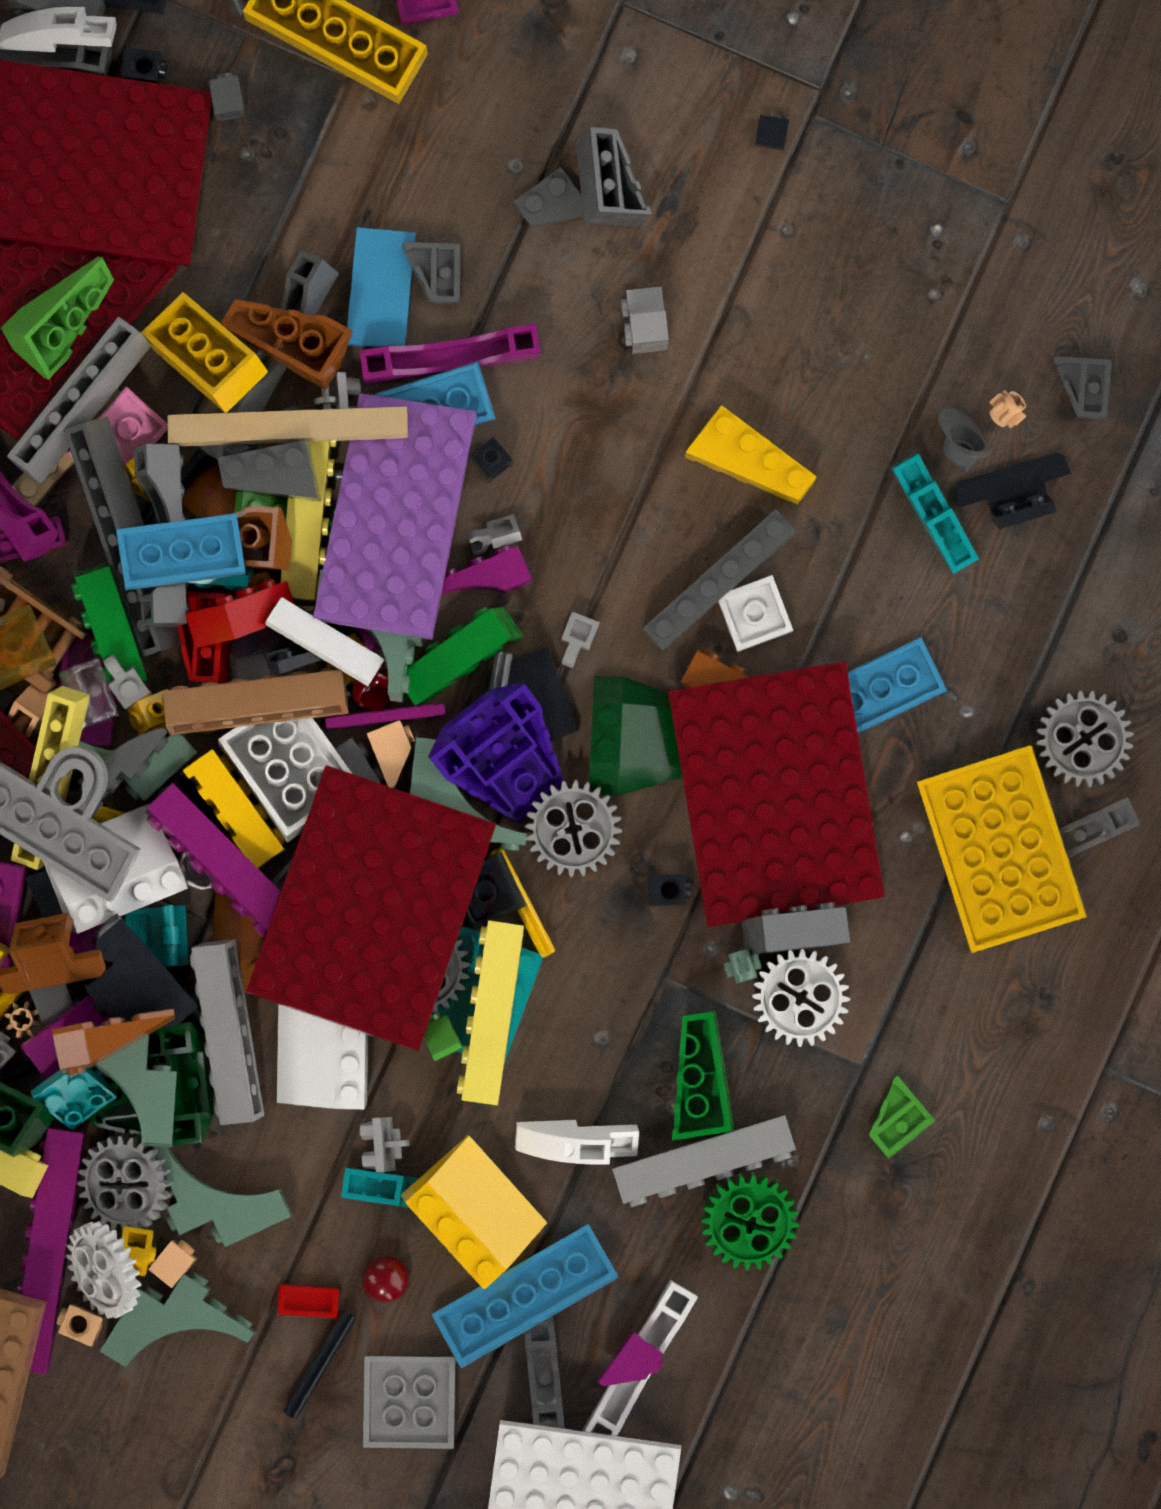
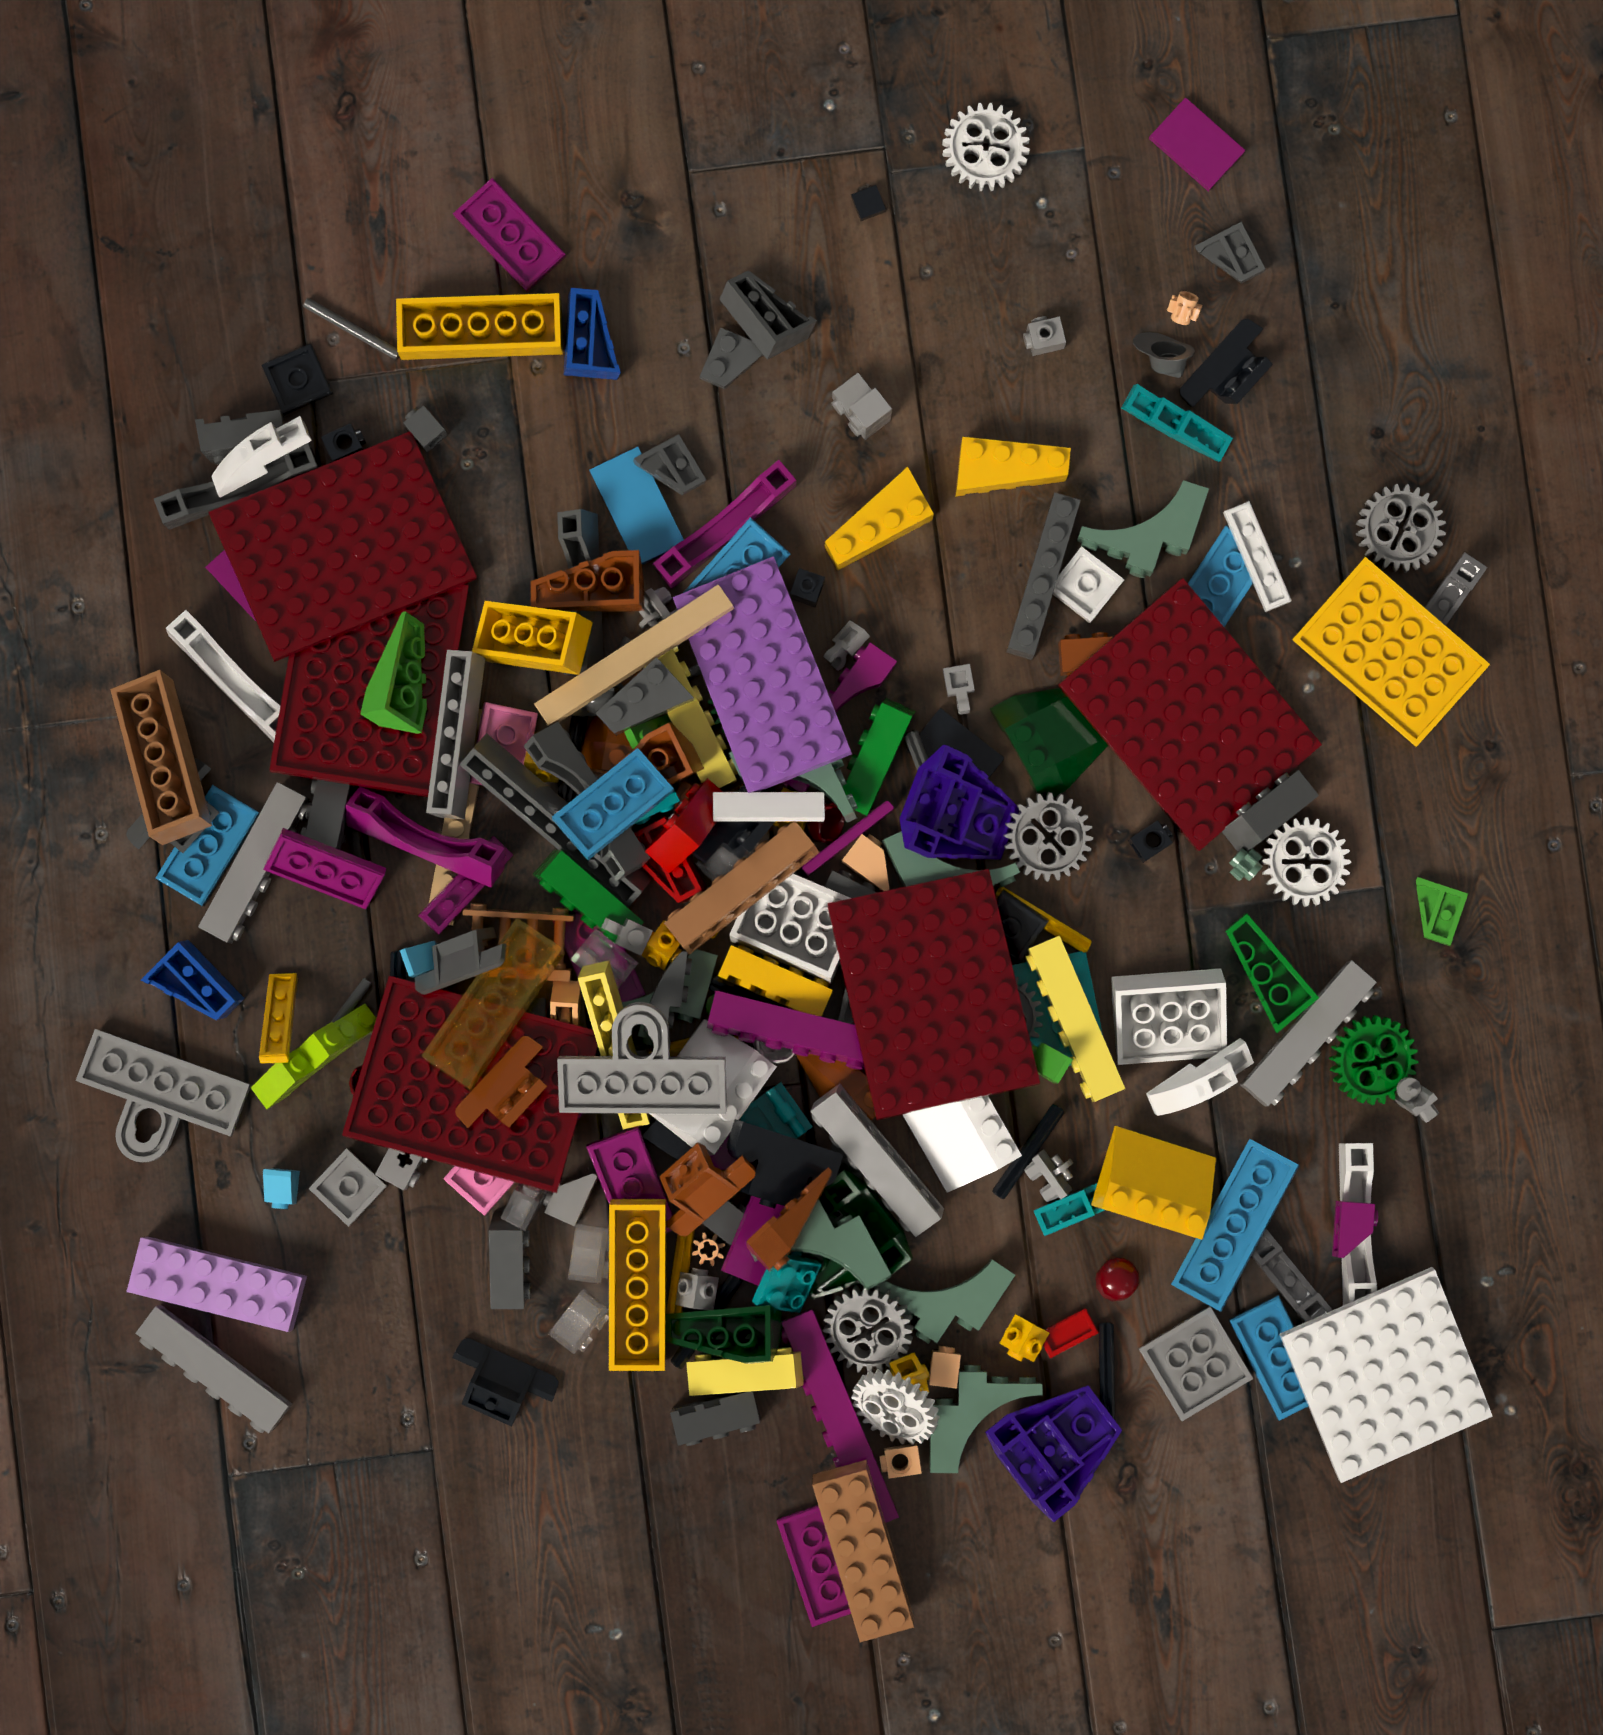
camera: 35 degrees left, 0 degrees up
(230, 1398) = (1055, 1447): none -> dark purple wedge
(263, 1281) = (1023, 1339): none -> yellow brick
(375, 1110) = (1028, 1151): none -> black axle
(428, 105) = (587, 340): none -> blue wedge
(483, 1409) = (1260, 1339): none -> dark azure tile
(583, 1064) = (1169, 1016): none -> white slope
(598, 438) = (883, 519): none -> yellow wedge
(765, 1281) = (1416, 1099): none -> light grey hips
(831, 606) = (1141, 544): none -> sand green arch
(859, 356) = (1044, 335): none -> light grey brick
(930, 125) = (987, 123): none -> white gear
(932, 684) = (1257, 556): none -> white tile
(1116, 261) = (1197, 144): none -> magenta tile

